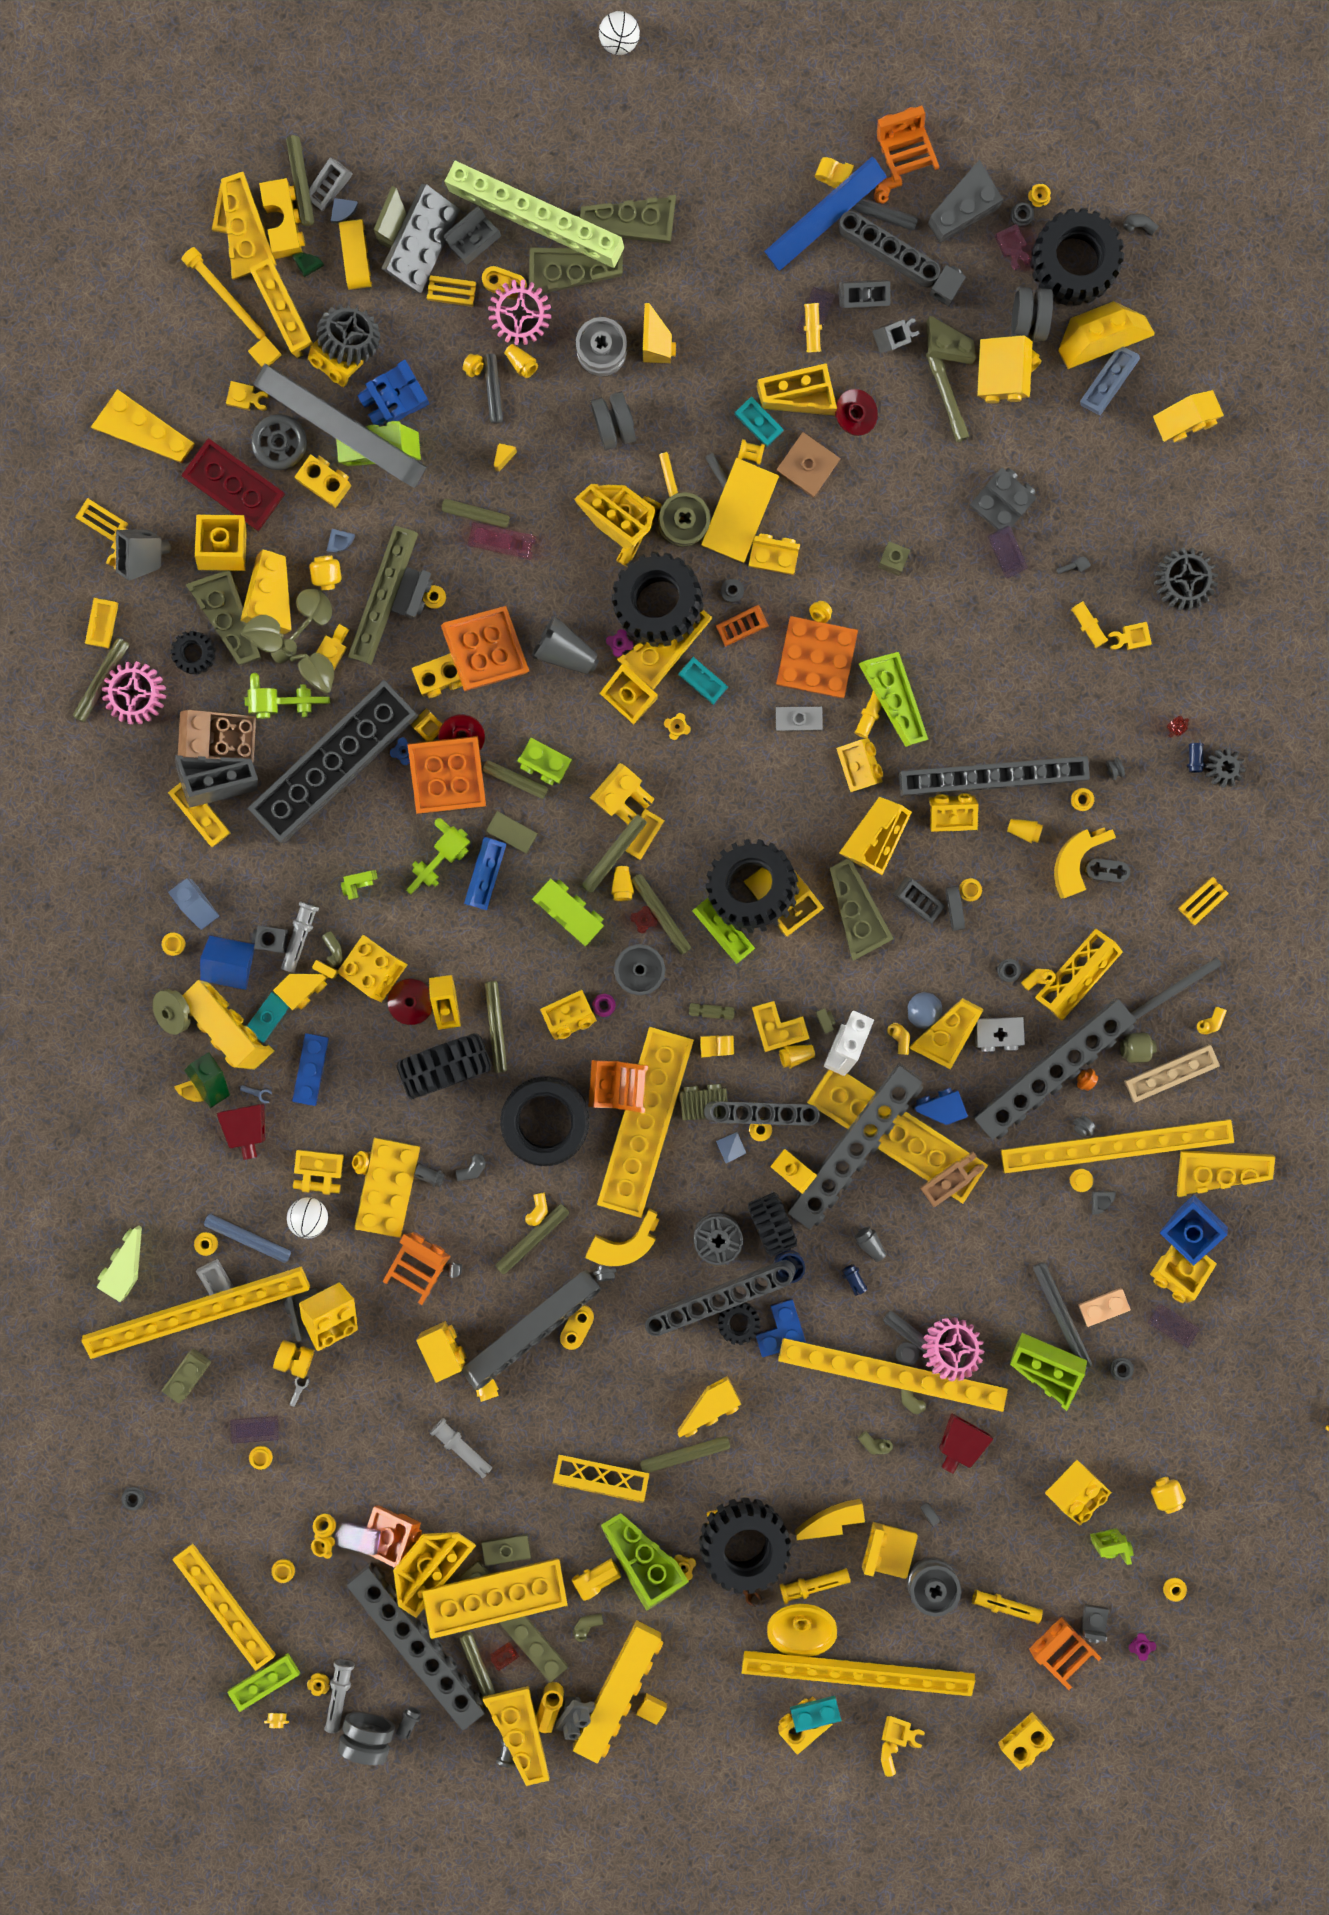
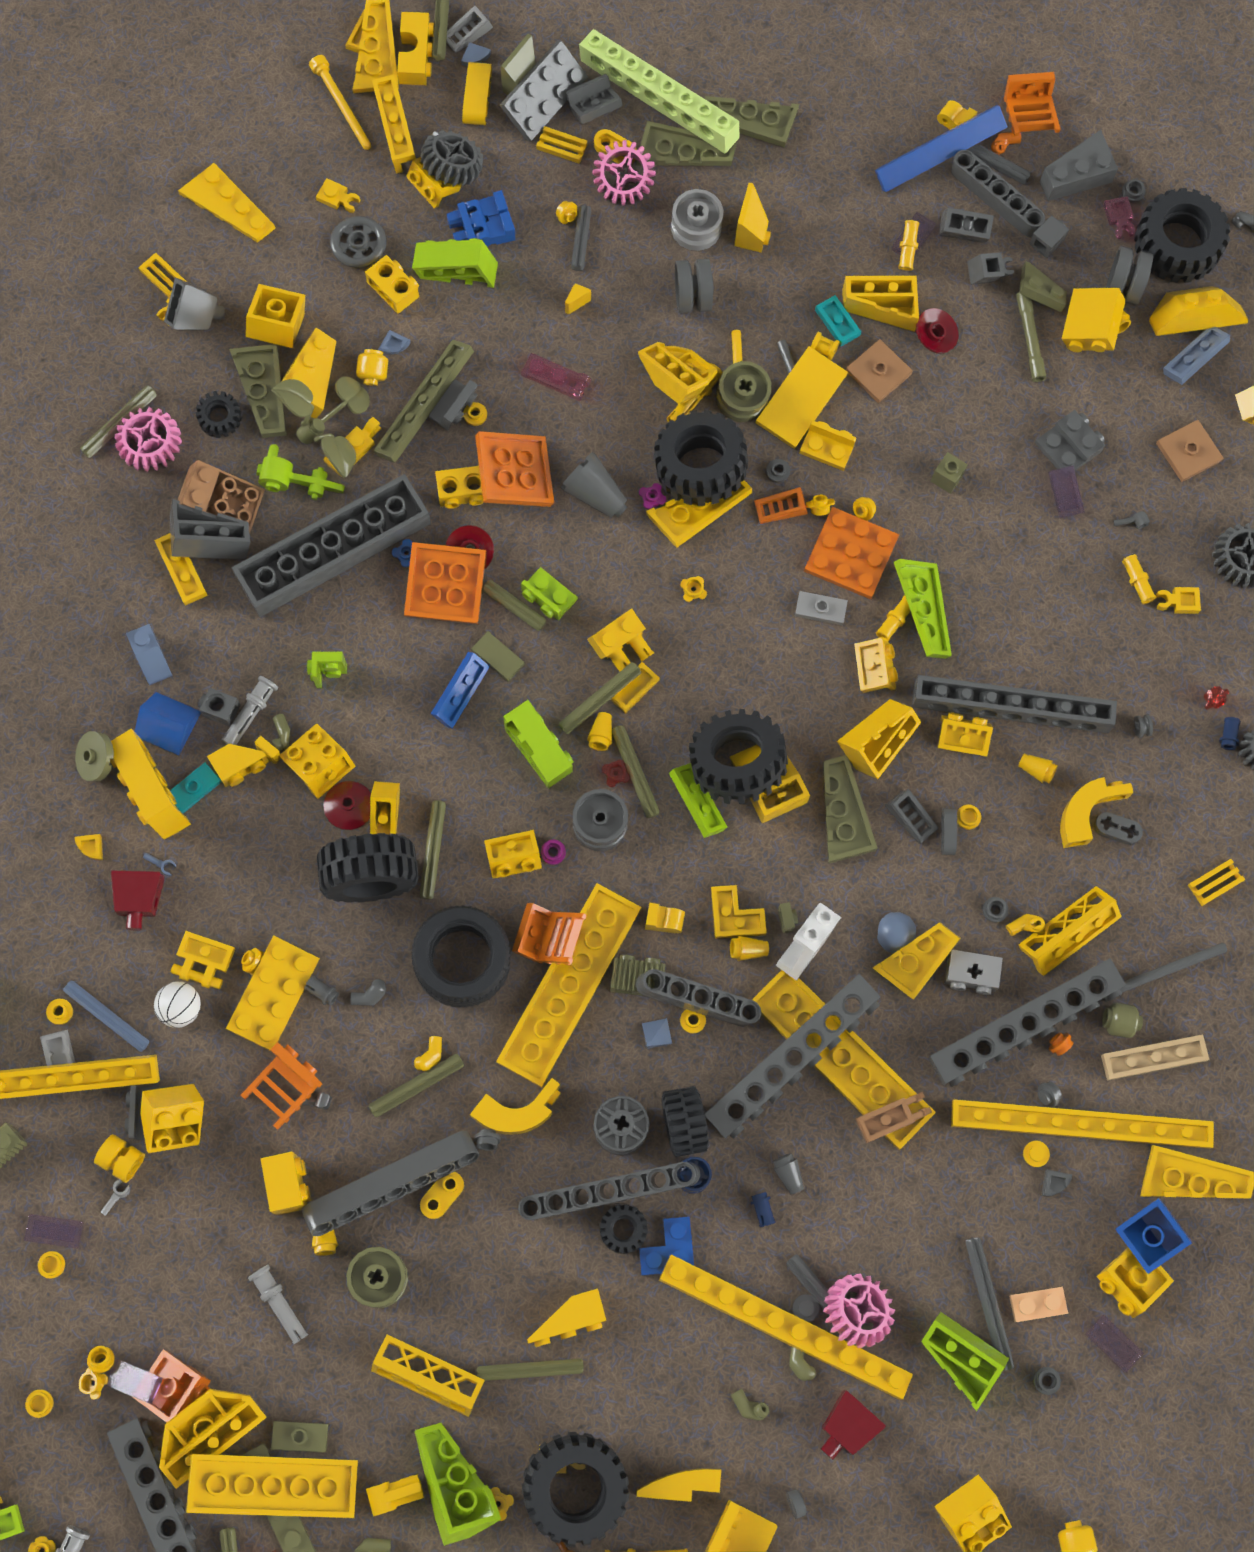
camera: 10 degrees right, 15 degrees down
(101, 623) = (135, 368): yellow plate -> none
(173, 944) = (116, 692): yellow plate -> none
(208, 1079) = (112, 835): dark green slope -> none
(233, 484) = (302, 269): dark red plate -> none
(264, 352) = (366, 161): yellow tile -> none
(307, 263) = (429, 93): dark green tile -> none
(310, 1069) = (224, 851): blue plate -> none
(340, 425) = (423, 232): beam -> none
(427, 725) = (436, 532): yellow slope -> none
(451, 846) = (432, 653): lime piece -> none
(475, 513) = (535, 346): olive axle -> none
(521, 361) = (616, 220): yellow cone -> none
(539, 1424) = (361, 1275): none -> olive wheel
(629, 694) = (652, 544): yellow slope -> none
(703, 680) = (730, 549): teal plate -> none
(711, 1011) = (666, 883): olive axle -> none
(778, 617) = (820, 505): none -> yellow plate
(793, 1171) = (720, 1070): yellow plate -> none
(902, 1036) = (866, 954): yellow arm -> none
(942, 1108) = (896, 1040): blue slope -> none
(1039, 189) = (1155, 172): yellow plate -> none
(1089, 799) = (1108, 745): yellow plate -> none
(1117, 481) = (1189, 450): none -> medium nougat plate
(1212, 1024) = (1209, 1014): yellow arm -> none

